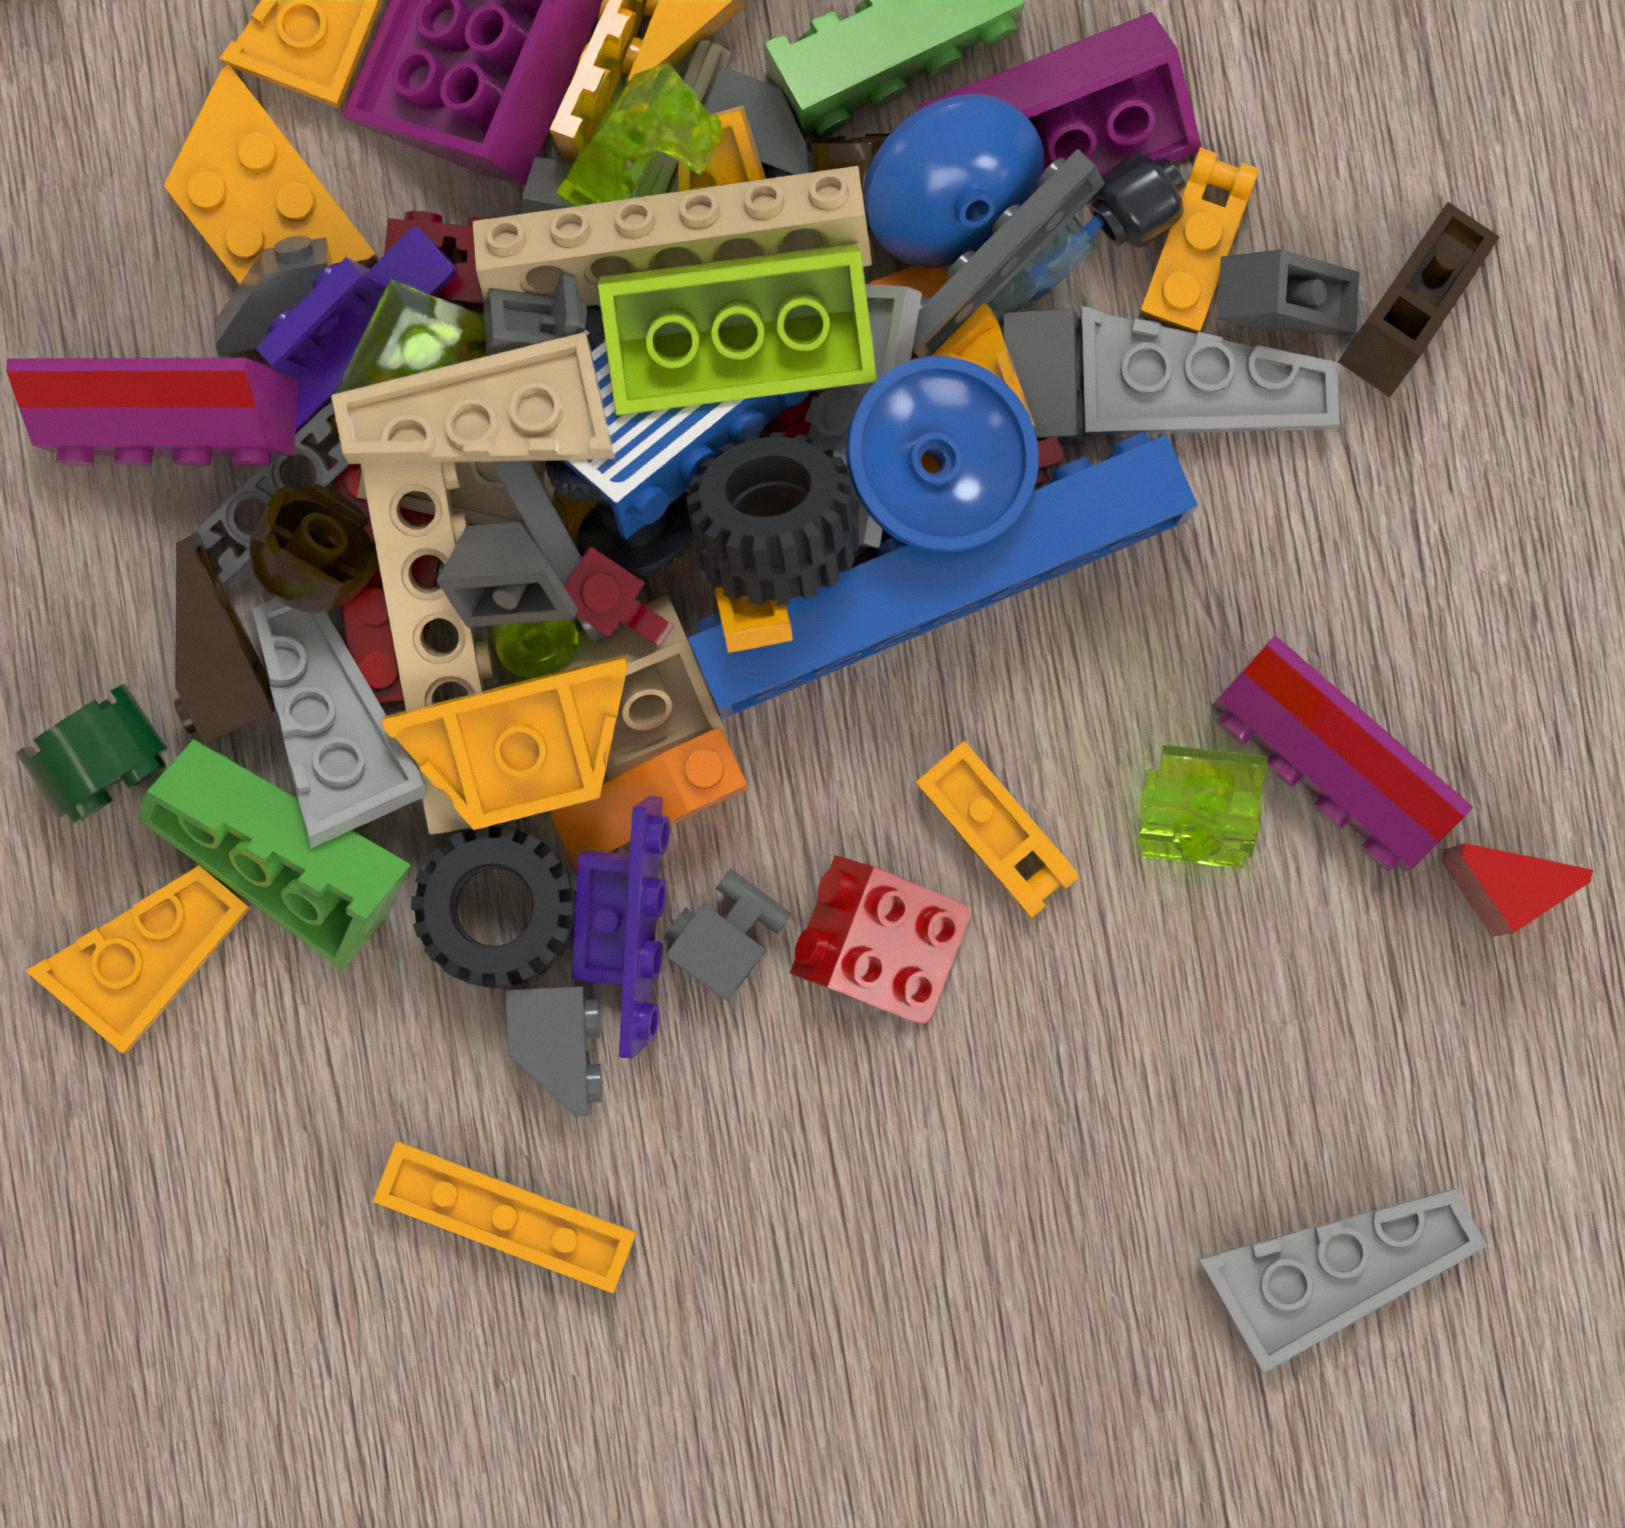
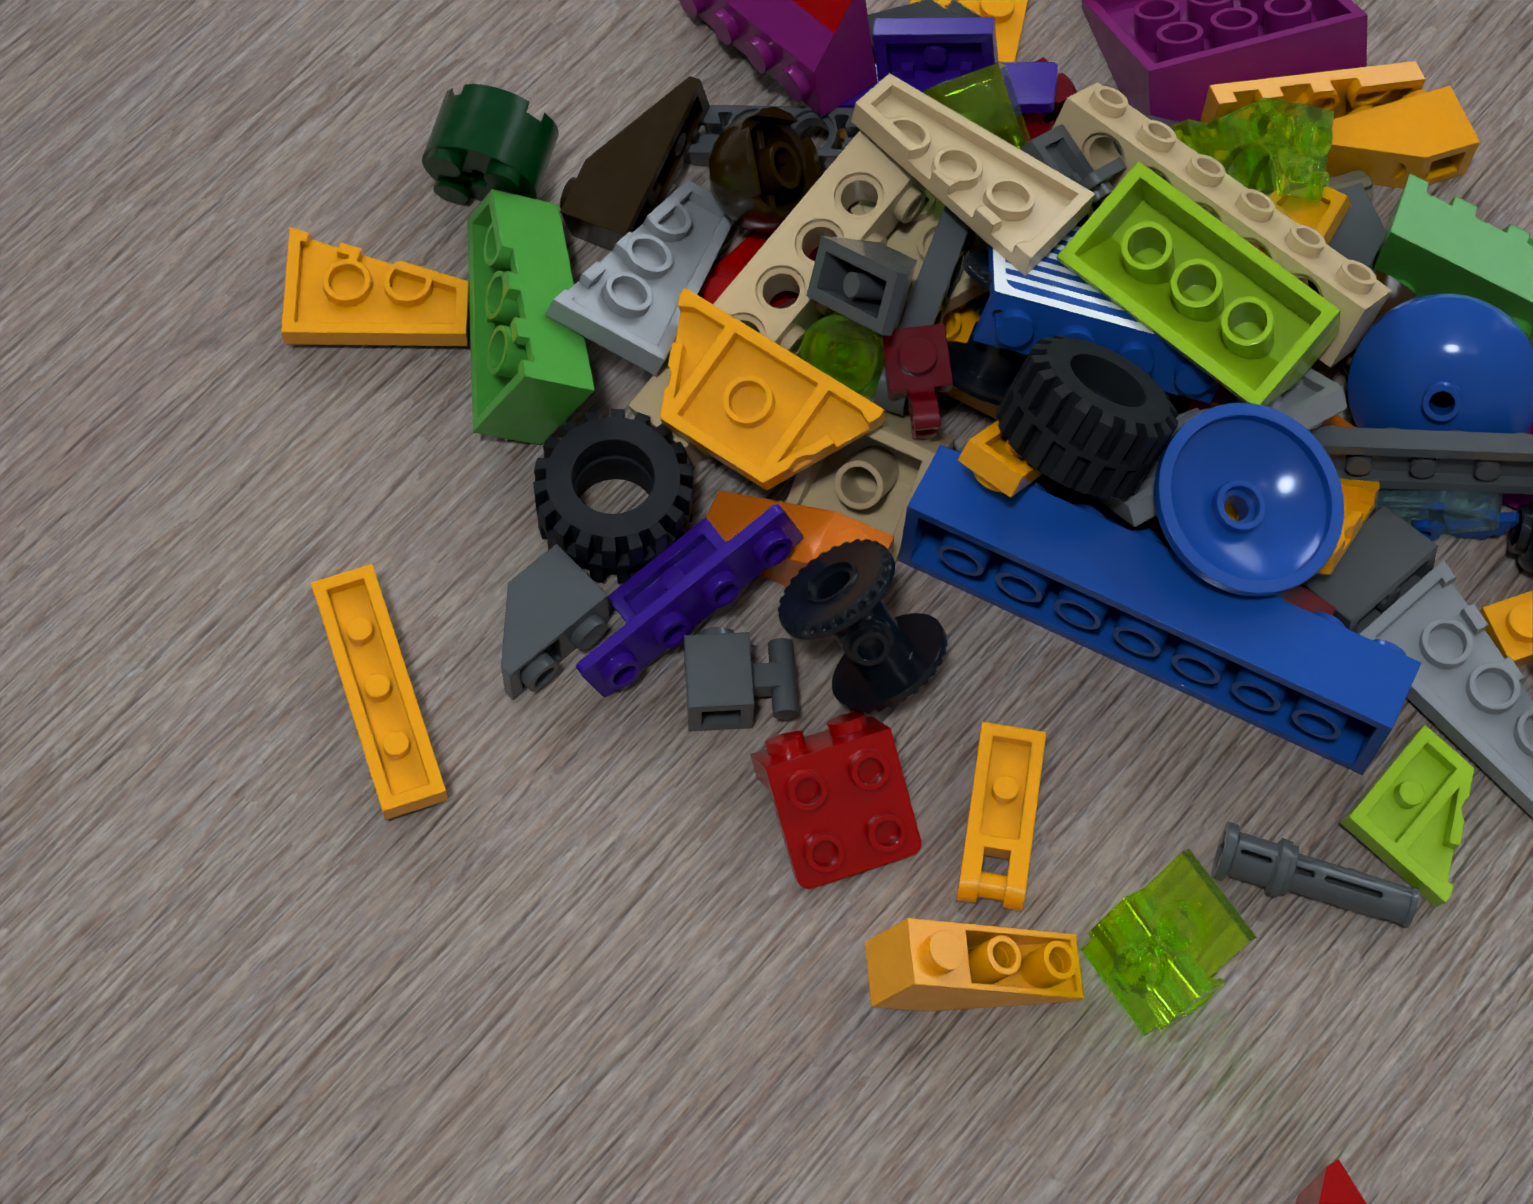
camera: 45 degrees right, 20 degrees down
(759, 818) = (883, 653): none -> black hose
(1095, 953) = (970, 966): none -> light orange slope
(1206, 659) = (1283, 869): none -> dark grey pin
(1249, 516) = (1415, 813): none -> lime wing
(1339, 756) = (1306, 1025): magenta slope -> none

